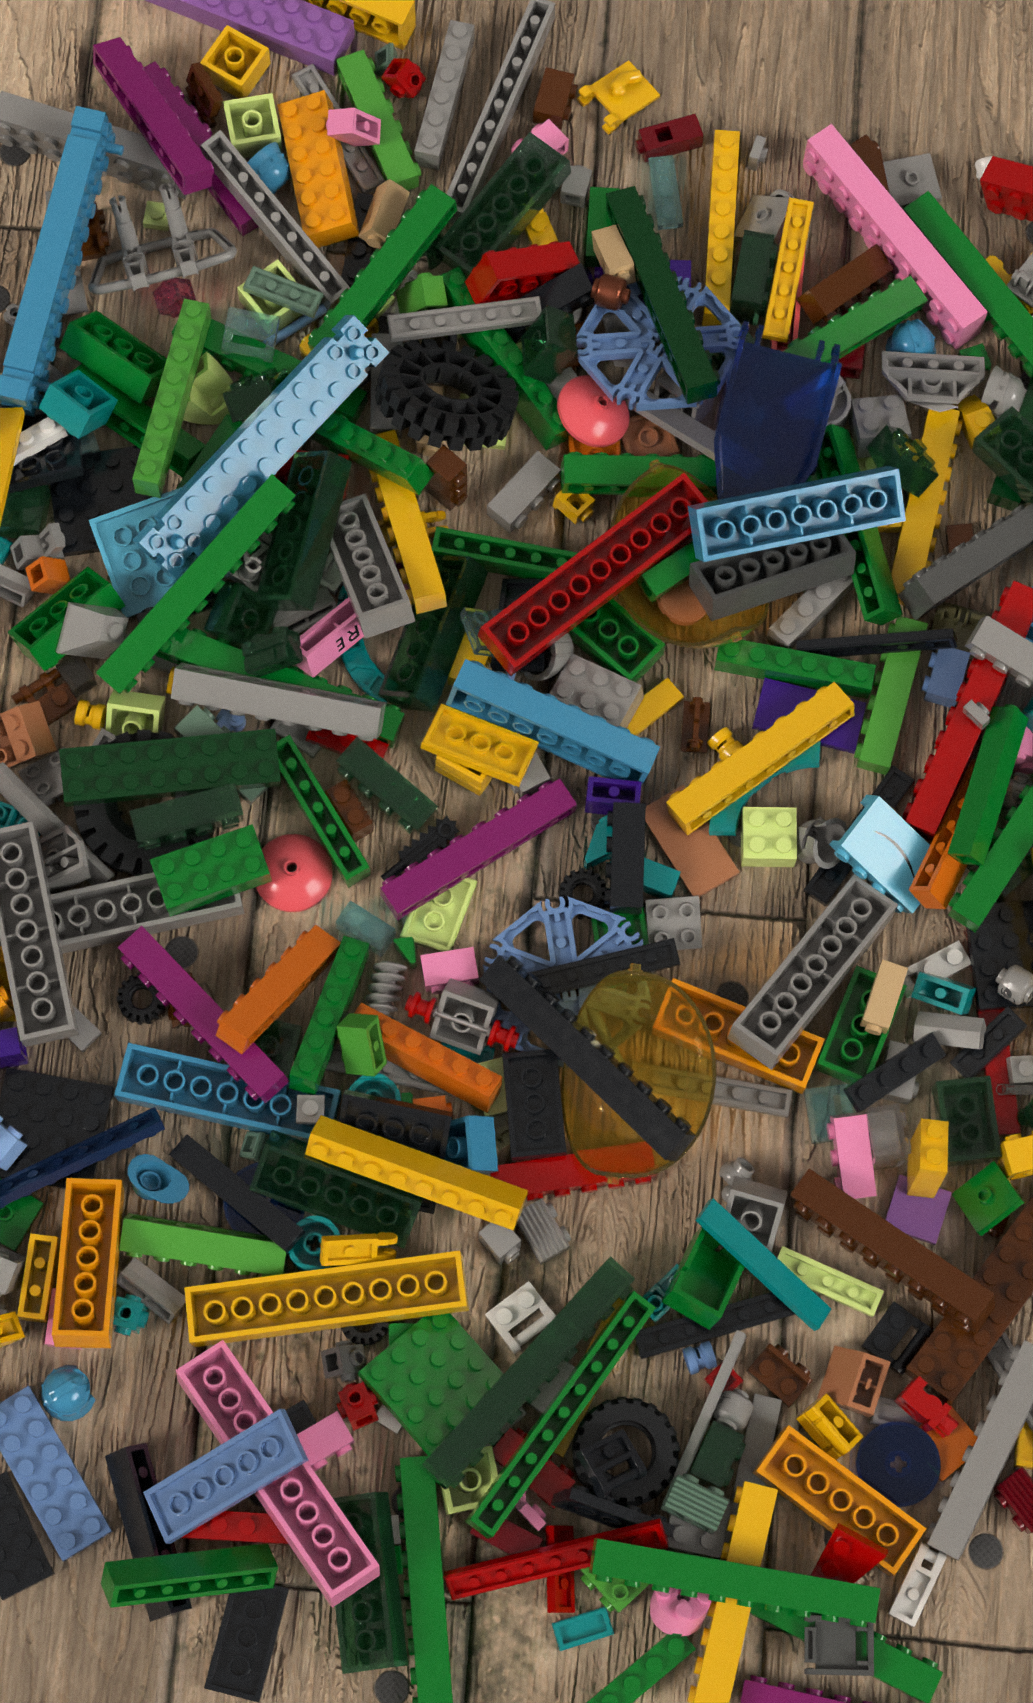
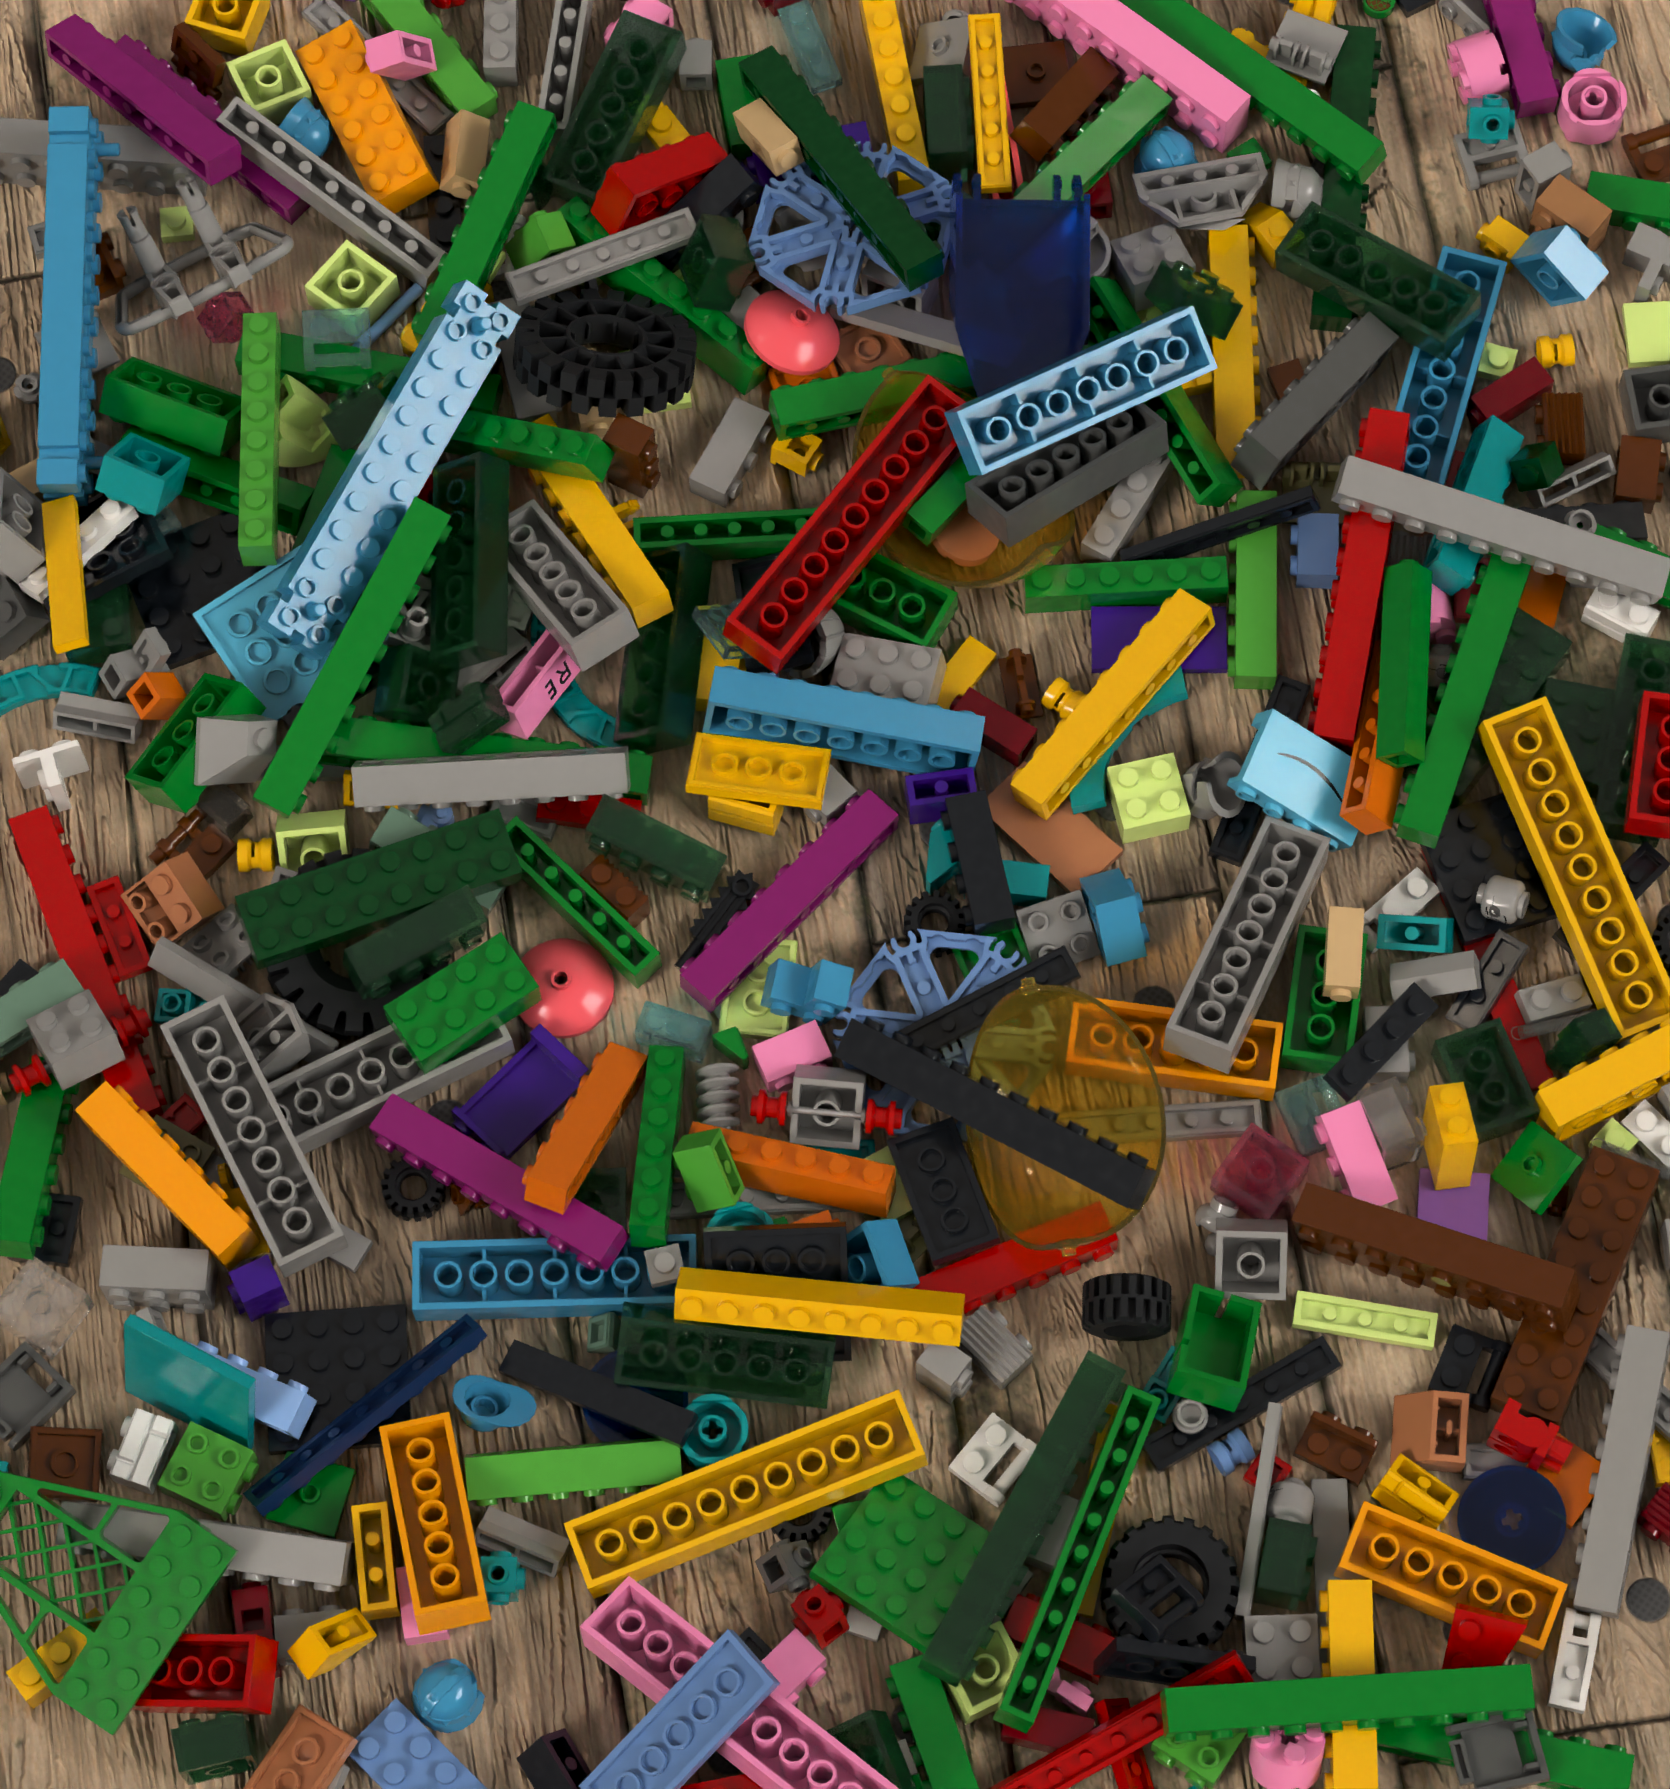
camera: 10 degrees left, 5 degrees down
(239, 949) = (521, 1095): none -> dark purple panel
(283, 292) = (364, 277): sand green tile -> none
(357, 1248) = (767, 1420): yellow hinge -> none
(475, 924) = (807, 992): none -> dark azure brick
(610, 292) = (777, 179): copper head -> none
(649, 1228) = (1126, 1307): none -> black tyre
(671, 757) = (1002, 731): none -> dark red brick
(675, 1324) = (1190, 1416): none -> light grey plate
(695, 1503) = (1273, 1623): sand green brick -> none
(719, 922) = (1115, 916): none -> dark azure brick
(763, 1264) = (1280, 1315): teal tile -> none
(776, 1150) = (1259, 1174): none -> clear pink brick
(828, 252) = (1033, 71): none -> reddish brown plate
(977, 713) = (1368, 579): light grey plate -> none

